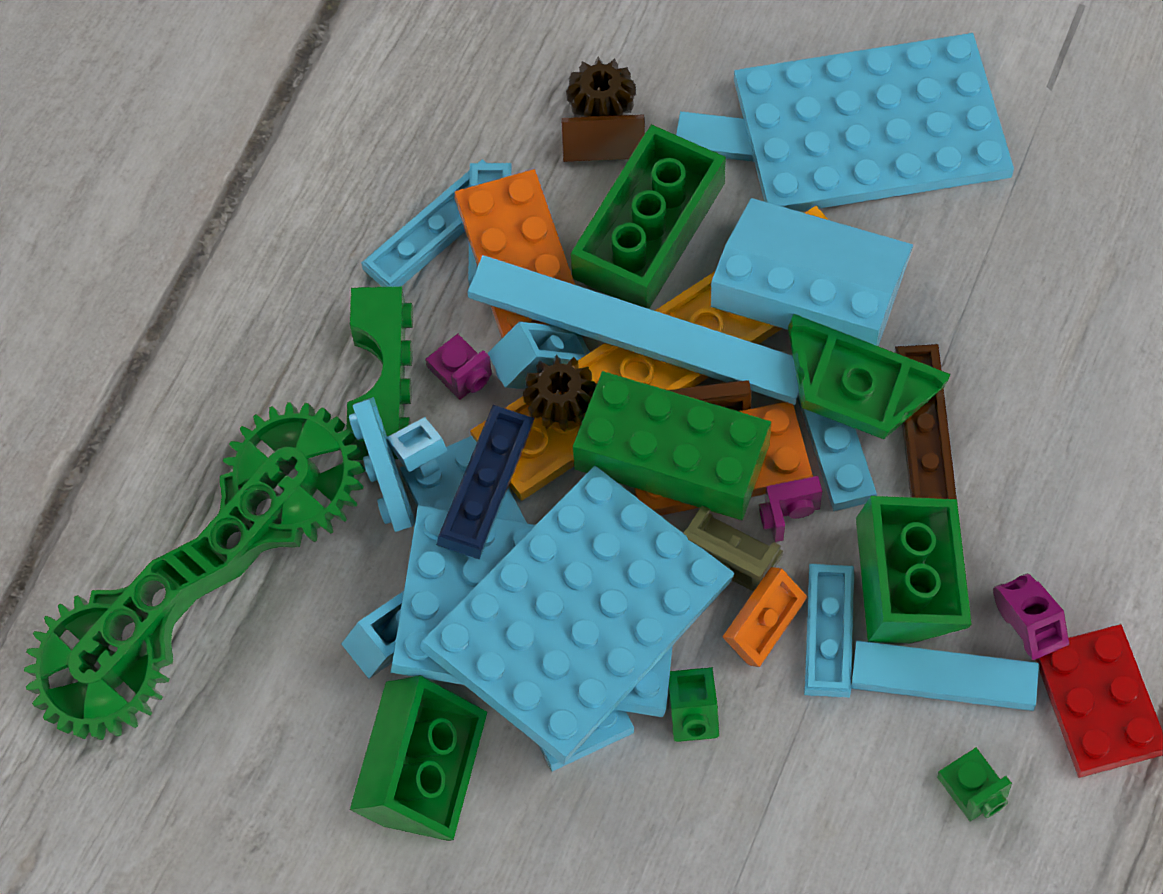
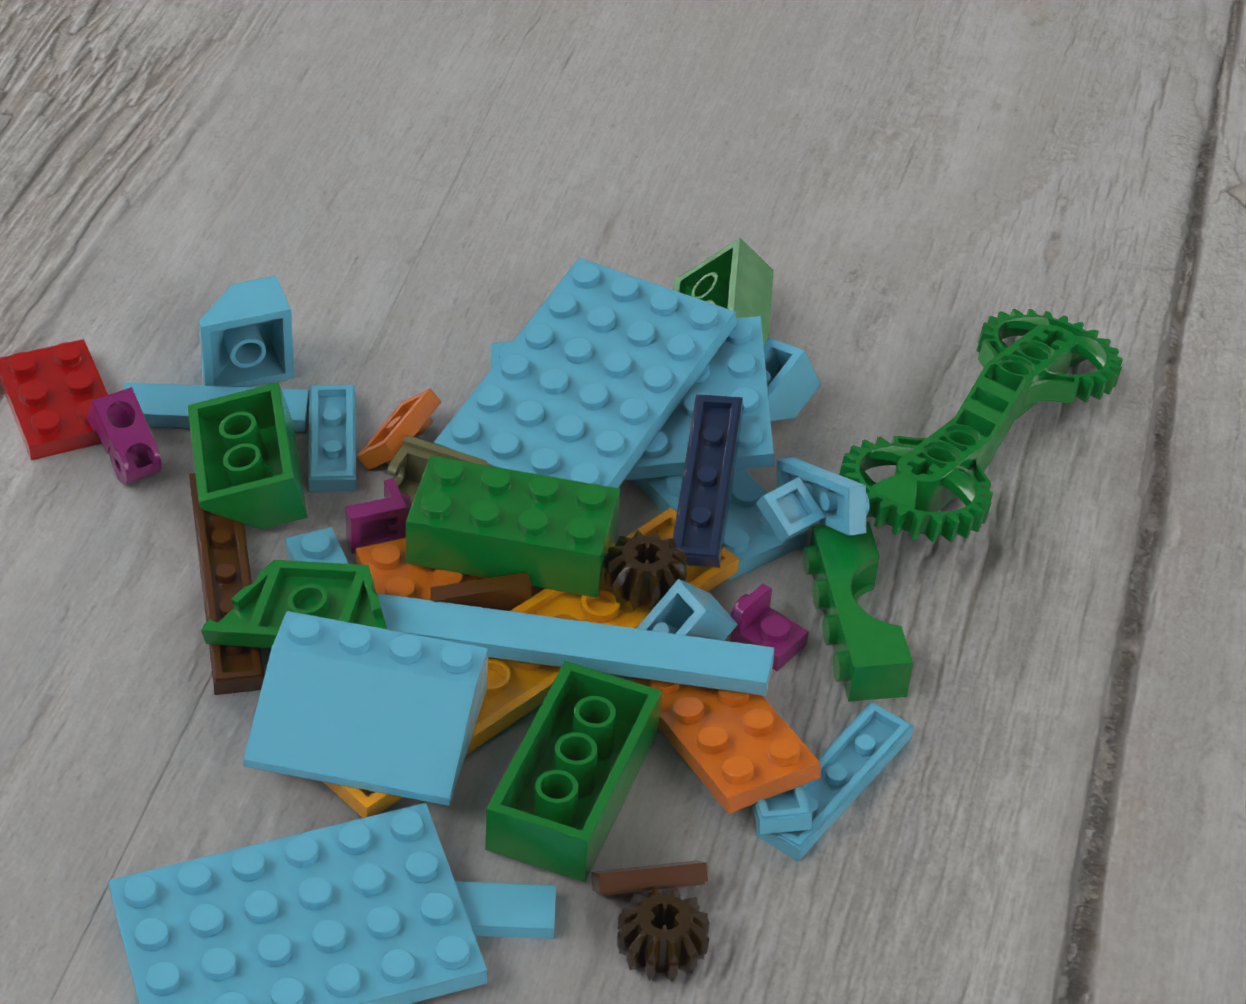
camera: 165 degrees right, 20 degrees down
(693, 704) = (463, 364): green bracket -> none
(910, 722) = (248, 336): none -> medium azure slope
(975, 785) = (178, 324): green bracket -> none

